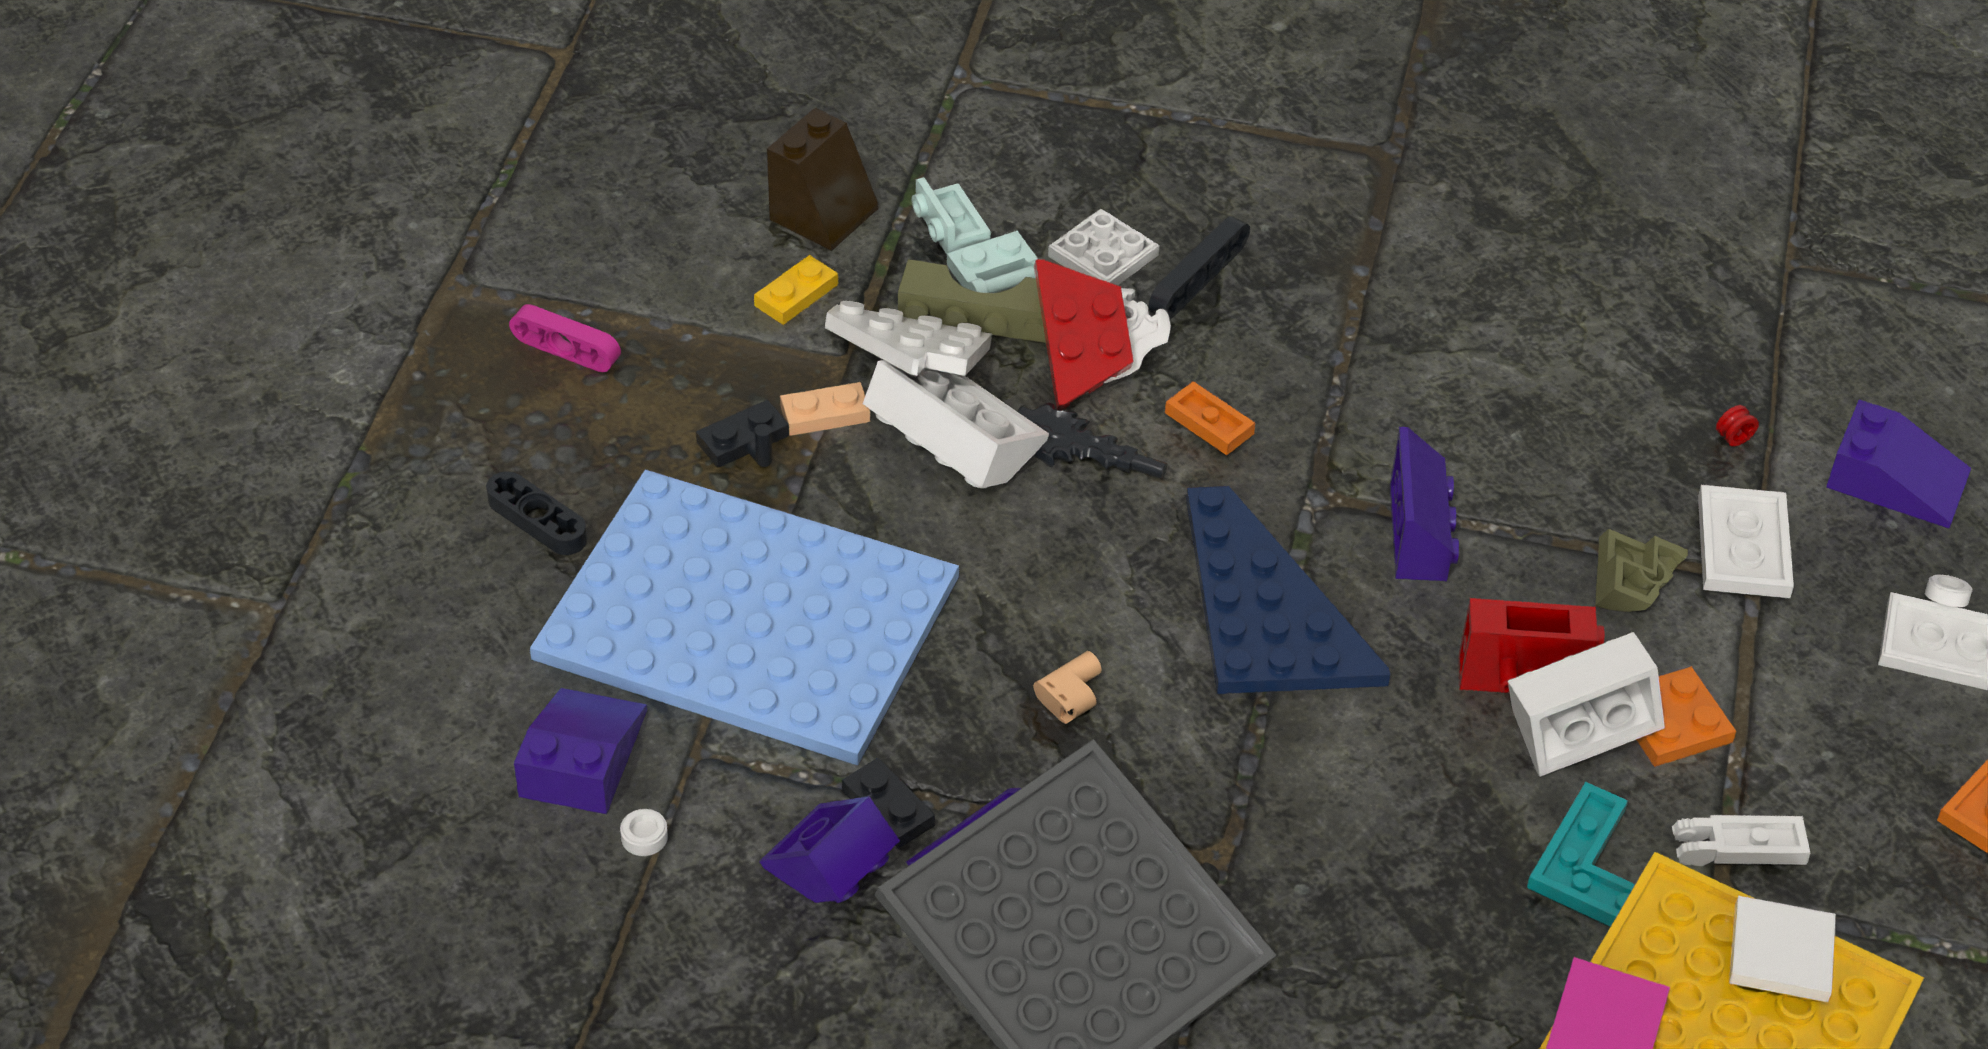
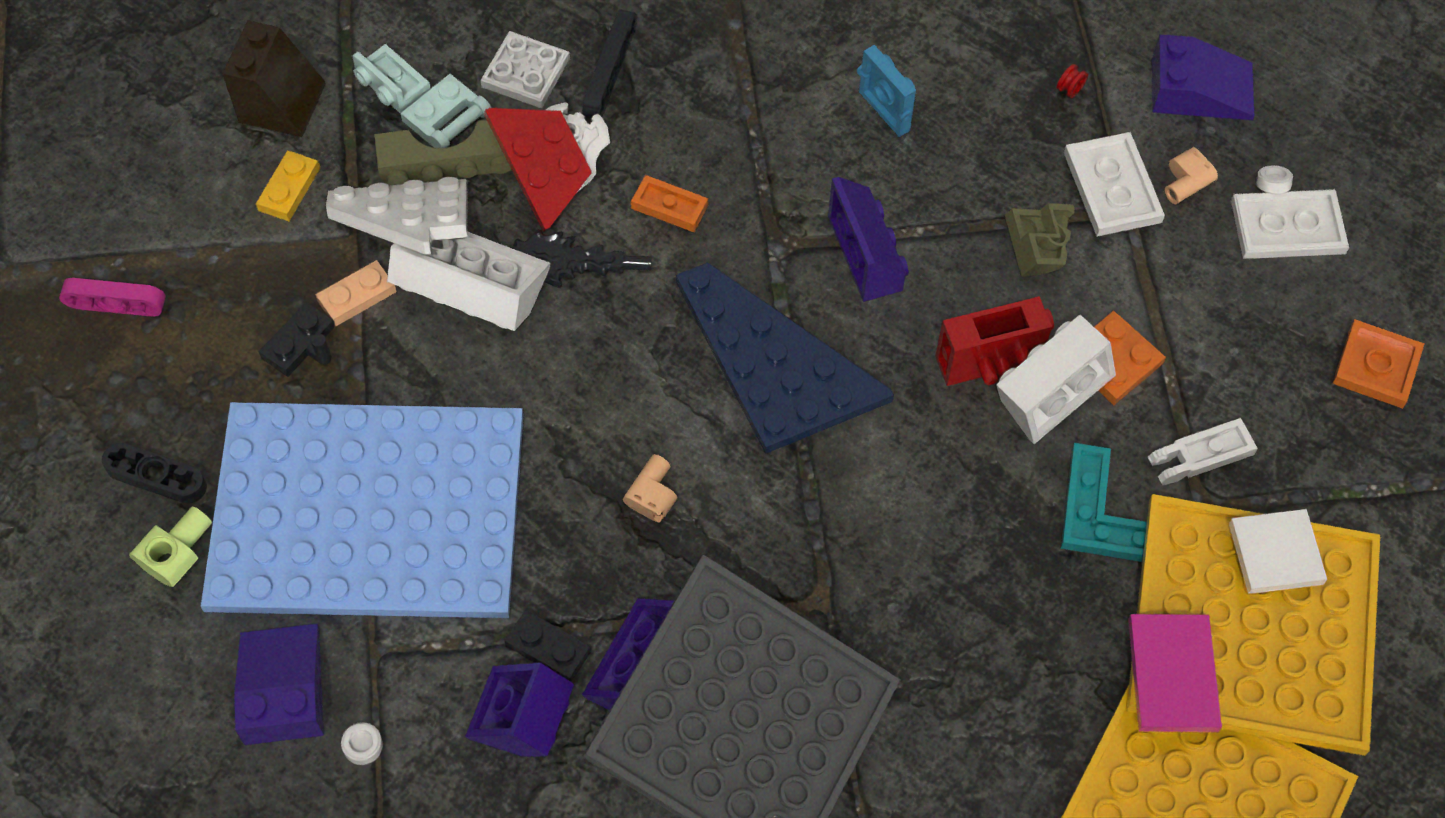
camera: 20 degrees left, 15 degrees up
(516, 589) = (176, 543): none -> yellowish green piece
(1506, 370) = (887, 90): none -> dark azure plate
(1847, 558) = (1193, 174): none -> light nougat piece

